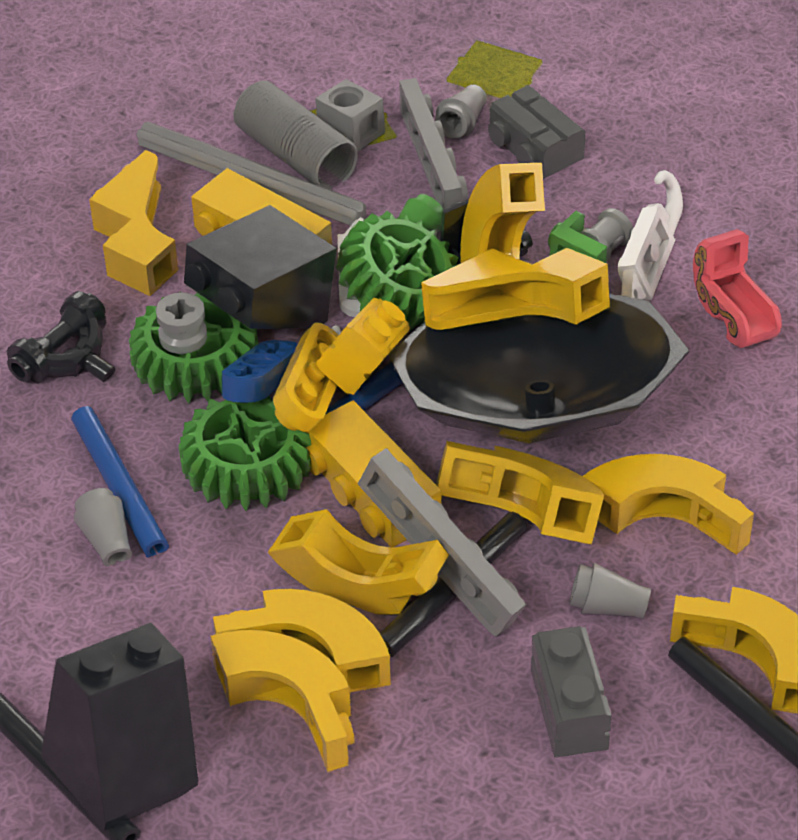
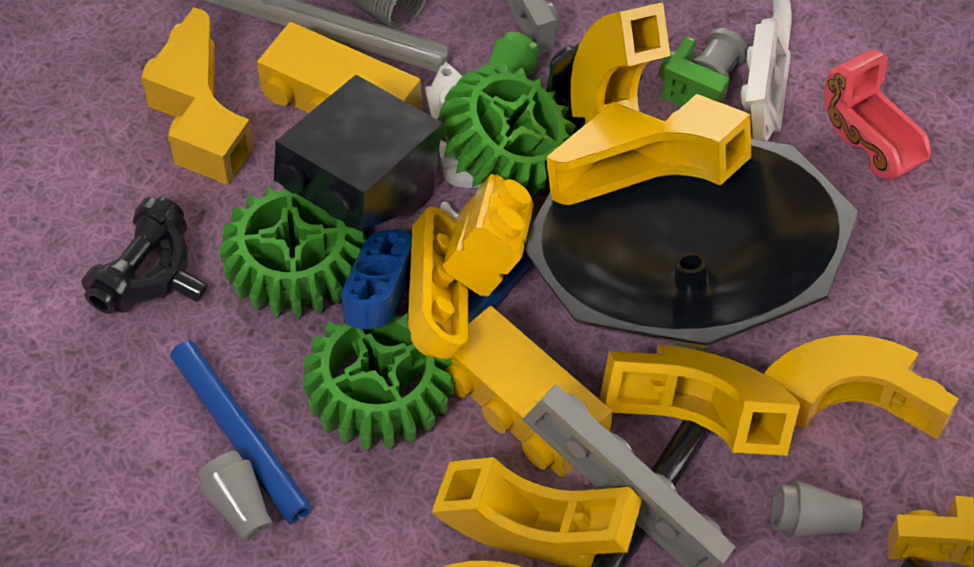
camera: 10 degrees left, 10 degrees up
(181, 323) = (292, 240): light grey wheel -> none

